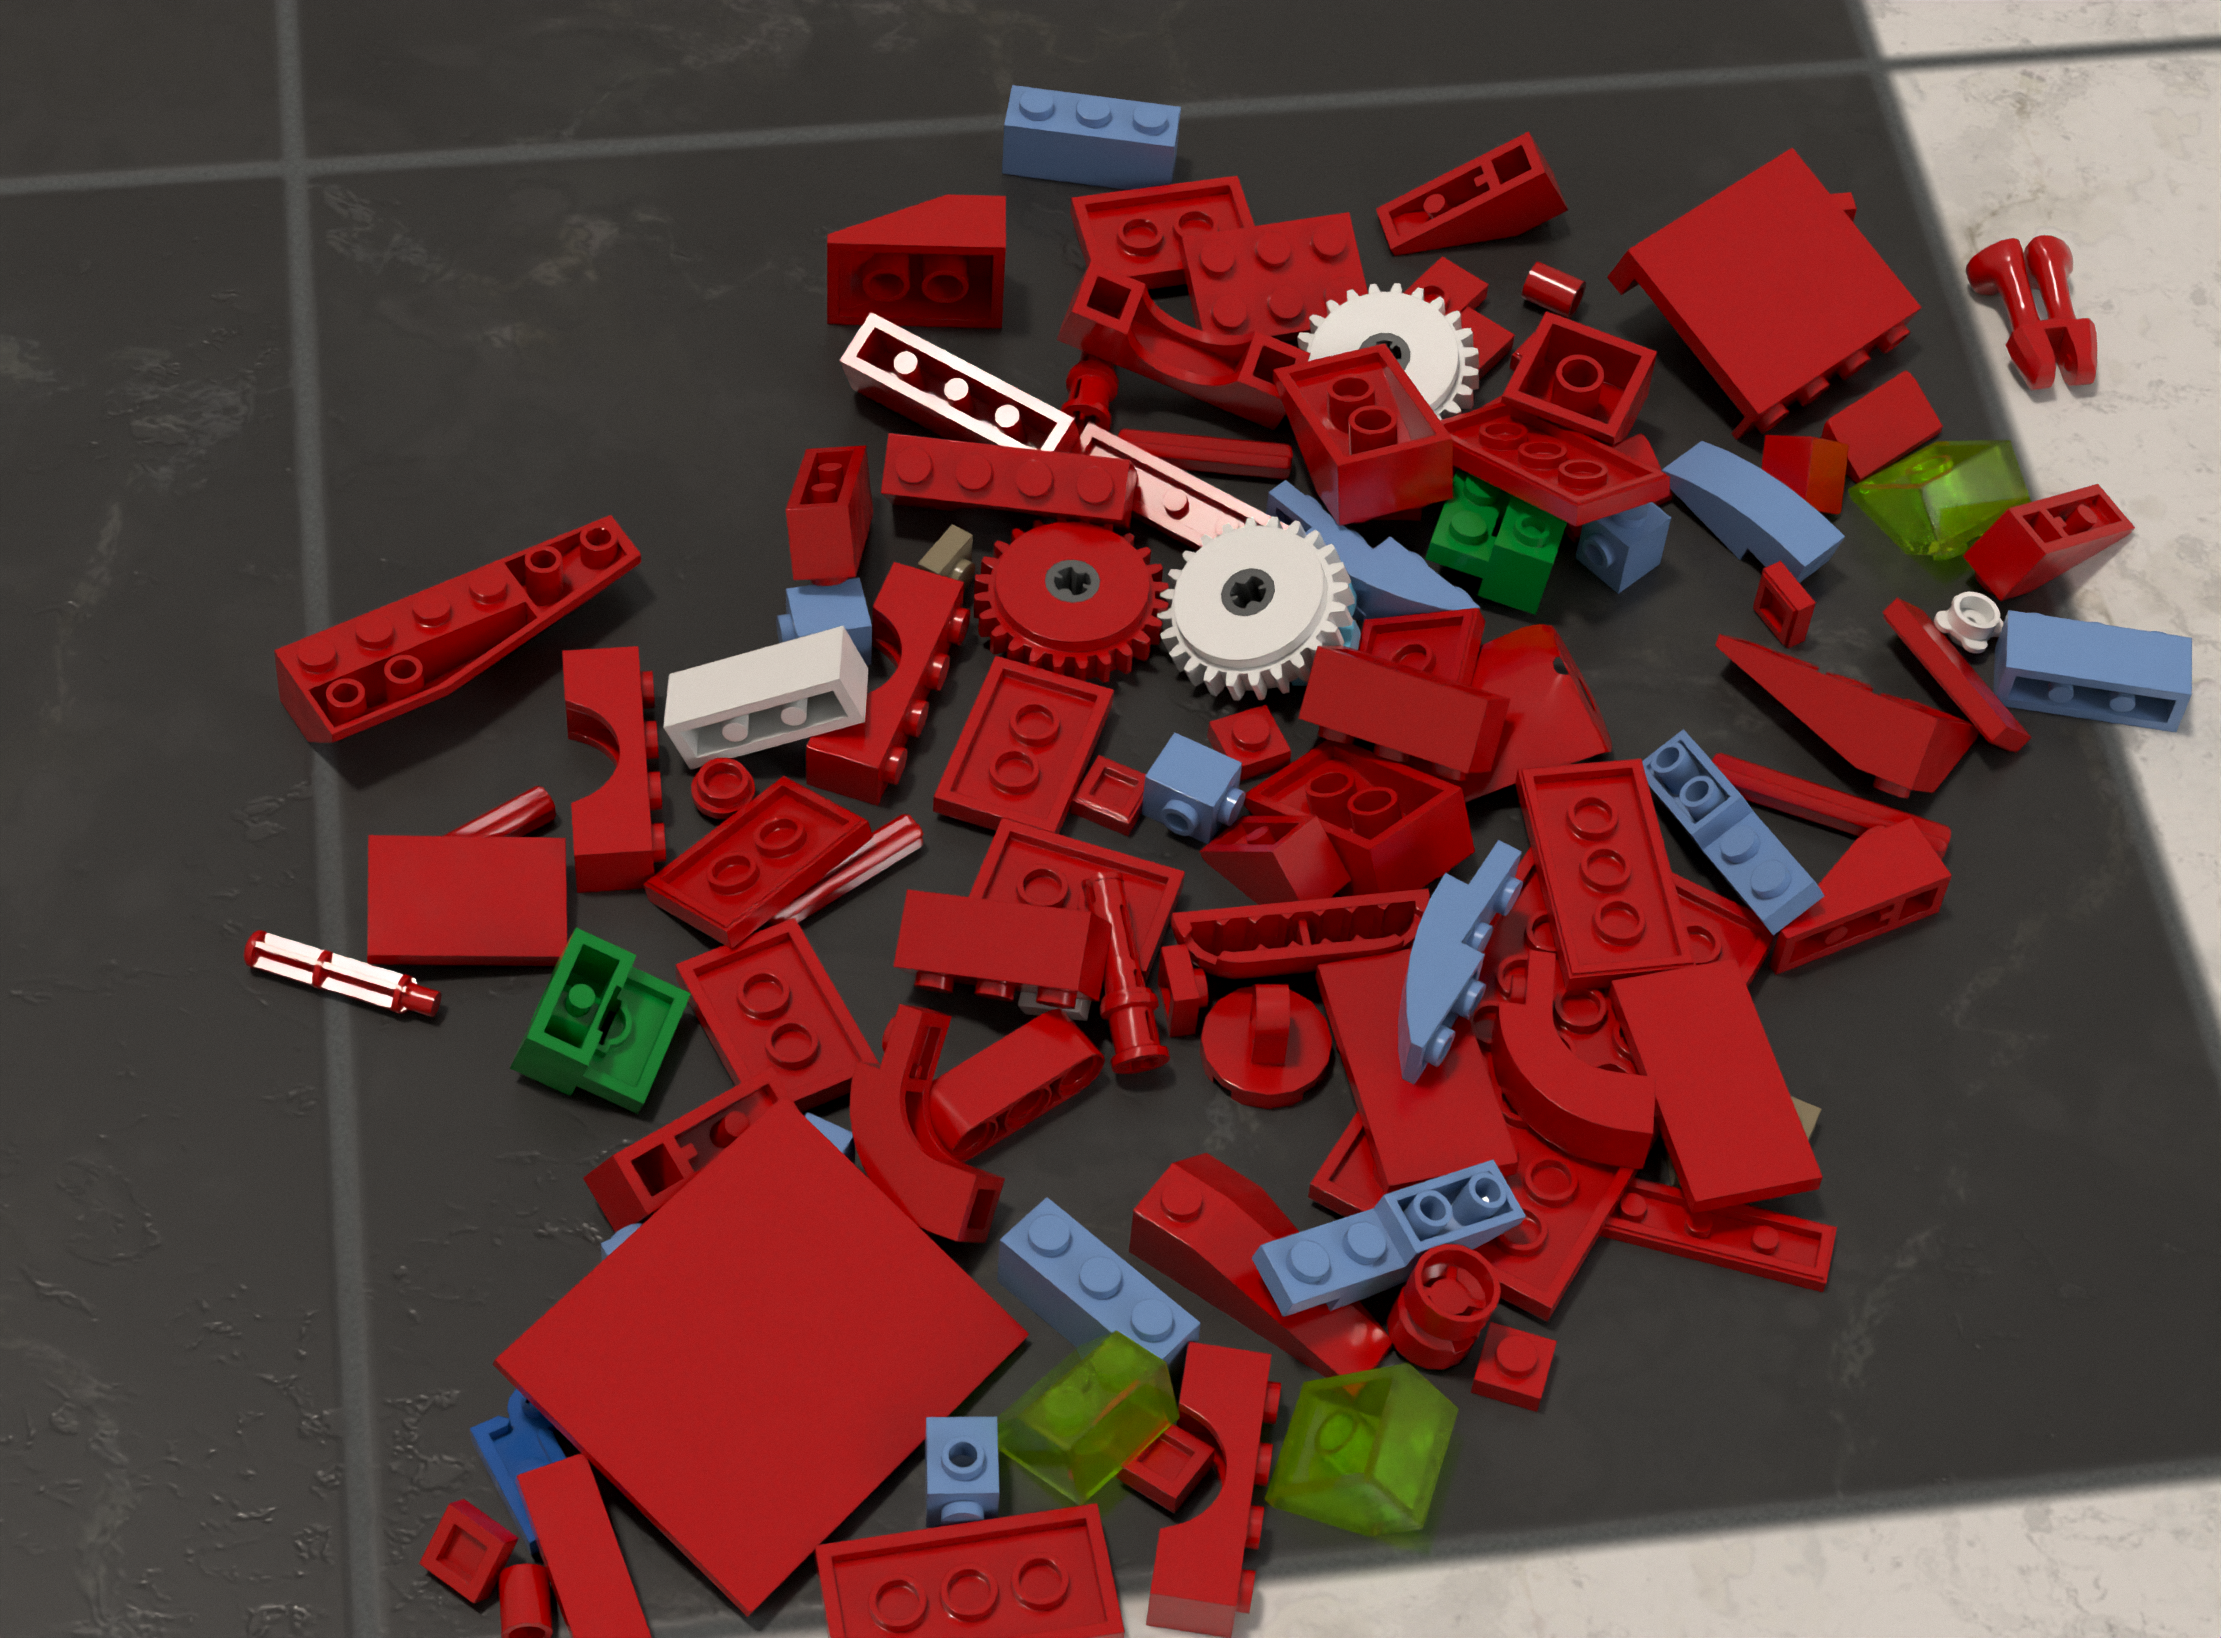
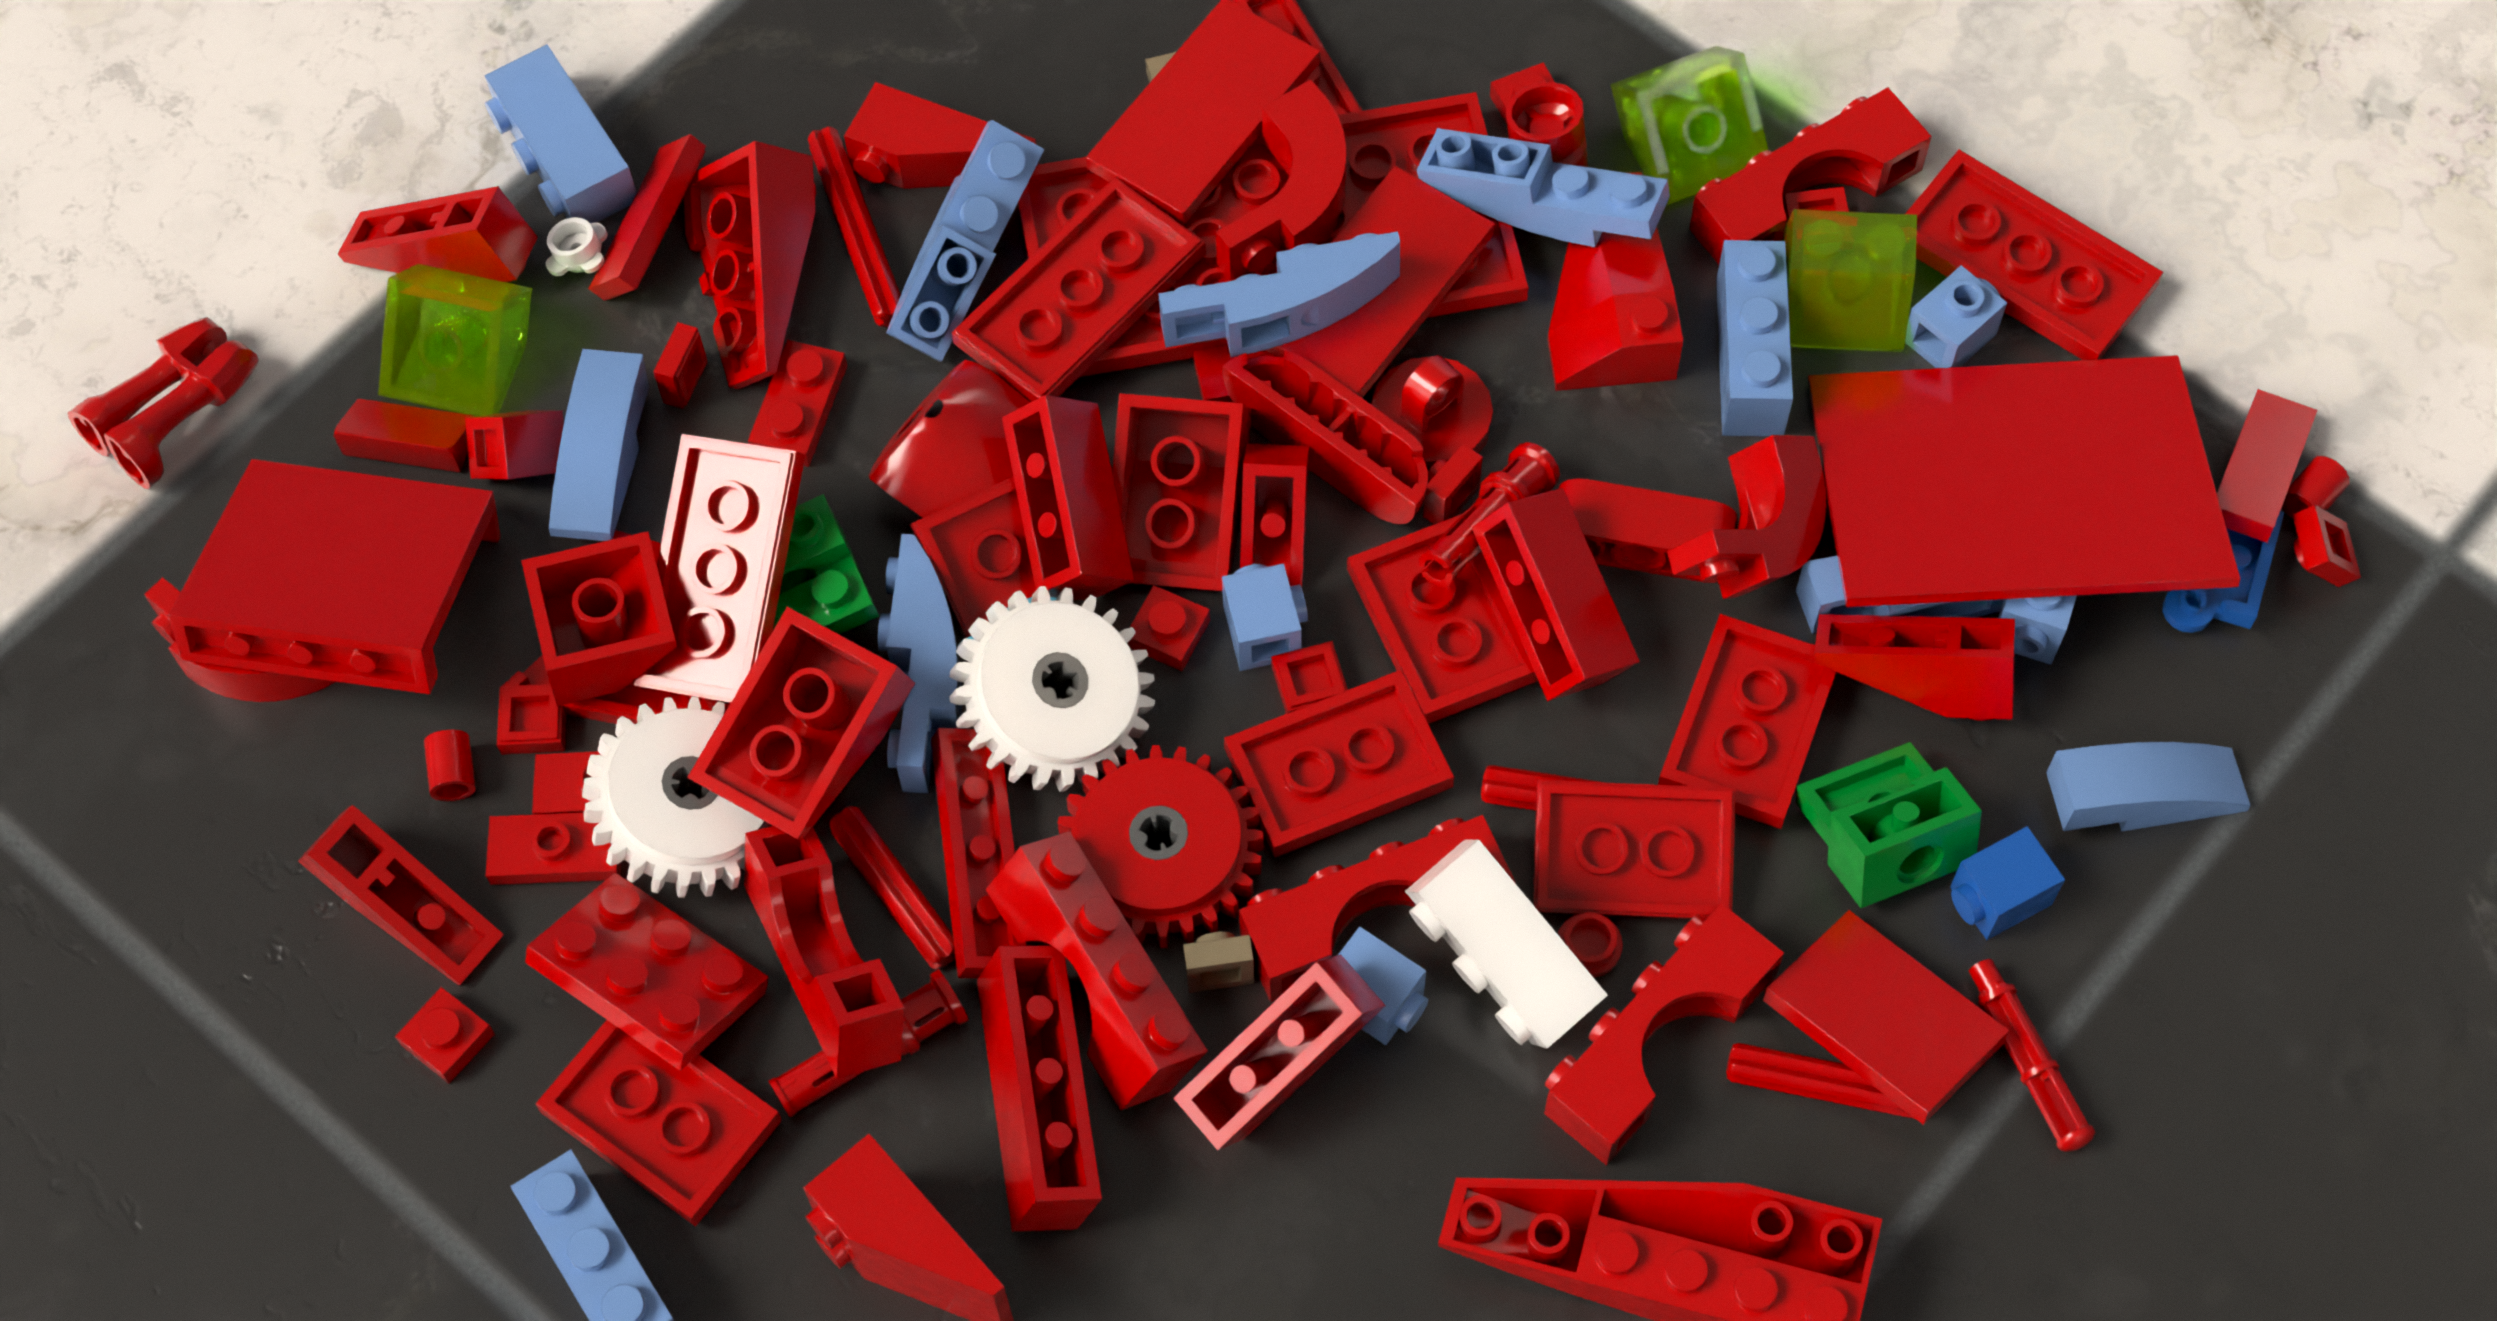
camera: 125 degrees left, 10 degrees up
(433, 1224) = (2145, 784): none -> medium blue slope
(469, 1062) = (2005, 883): none -> blue brick
(1344, 180) = (445, 1035): none -> red plate
(1685, 665) = (799, 399): none -> red plate

